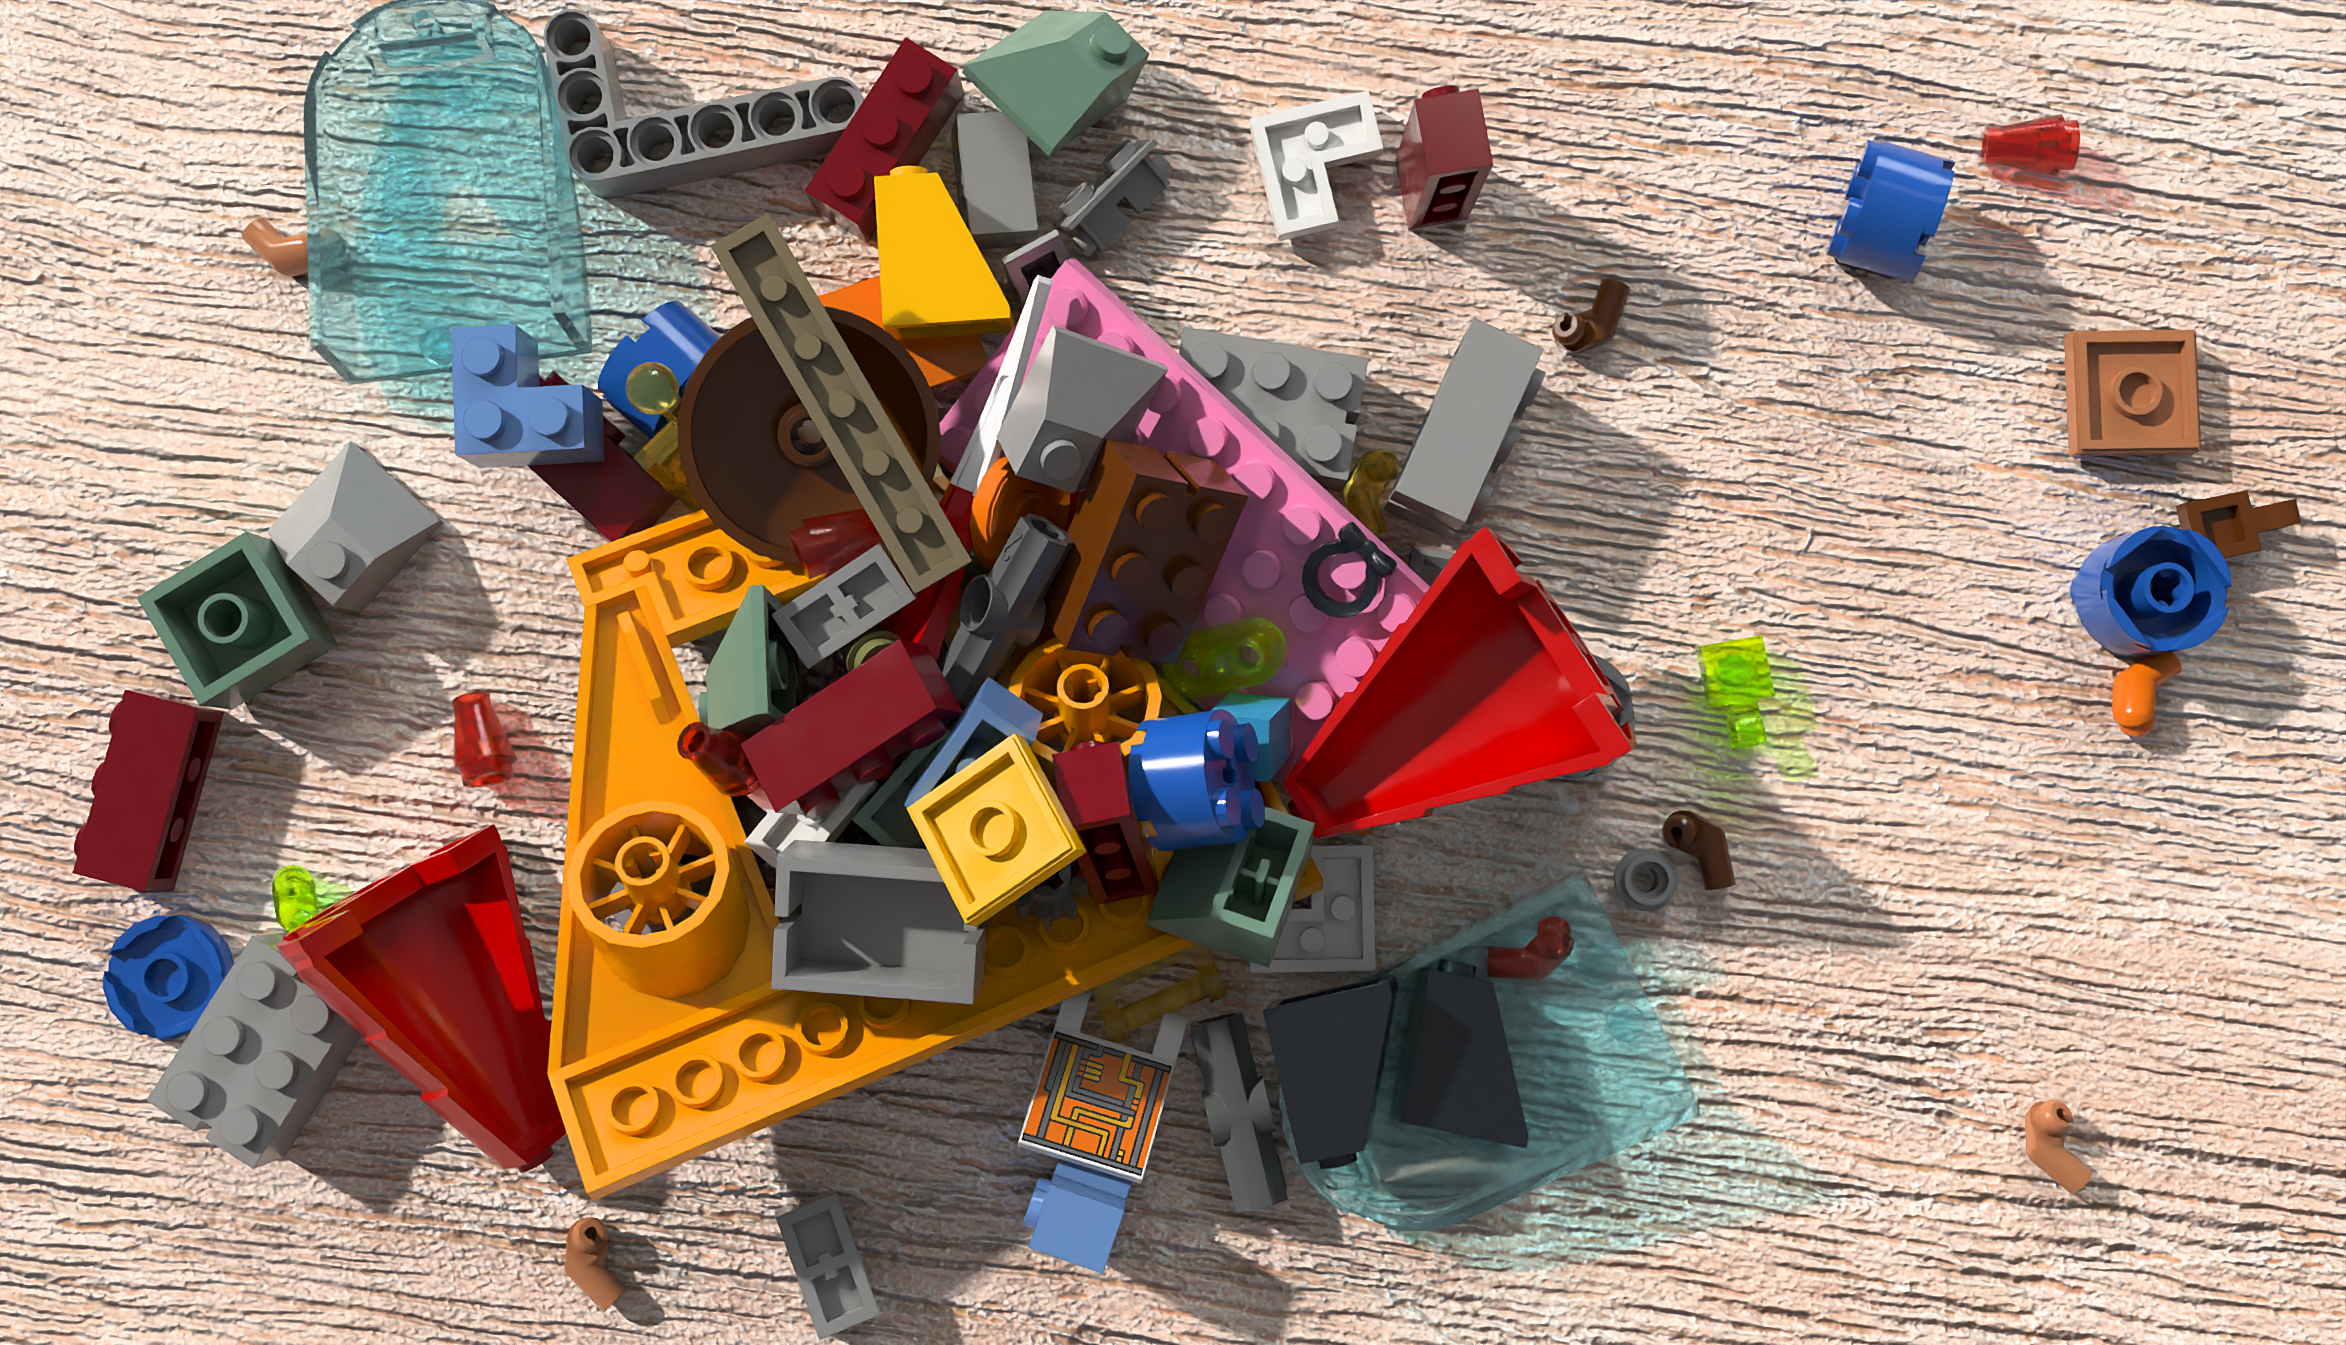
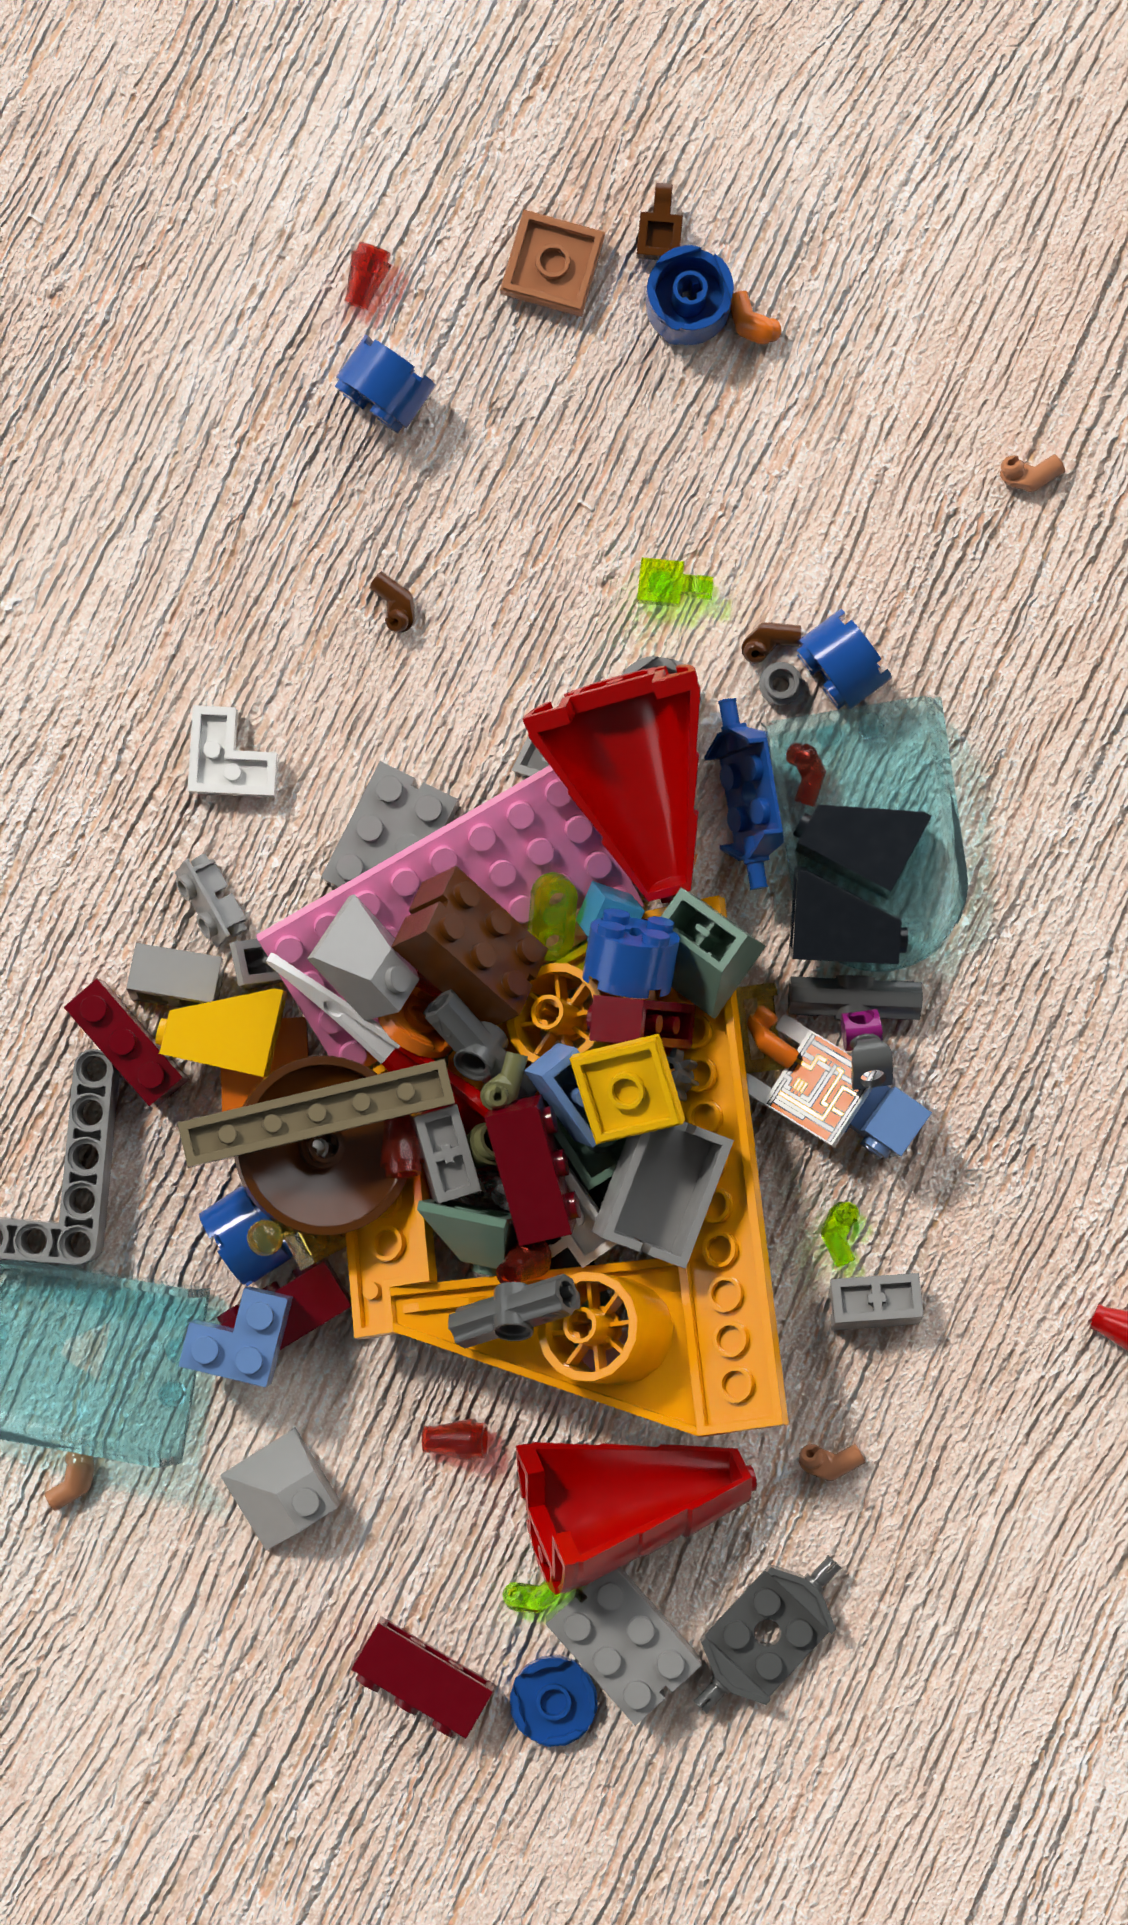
camera: 75 degrees left, 0 degrees up
(237, 622) = (326, 1580): sand green brick -> none
(282, 1240) = (758, 1668): none -> dark grey plate
(643, 764) = (514, 1311): none -> dark grey piece
(913, 1178) = (836, 1229): none -> clear neon green arm
(961, 659) = (506, 1085): none -> olive arm
(1059, 74) = (116, 911): sand green slope -> none
(1142, 1005) = (767, 1041): none -> orange arm
(1187, 1143) = (864, 1037): none -> dark grey leg
(1340, 923) = (753, 909): white plate -> none
(1350, 539) = (503, 809): black piece -> none
(1367, 484) = (460, 786): clear yellow arm -> none
(1443, 157) = (261, 670): dark red brick -> none
(1467, 430) = (448, 711): light grey piece -> none
(1480, 881) = (749, 792): none -> blue plate
(1707, 958) = (843, 660): none -> blue brick

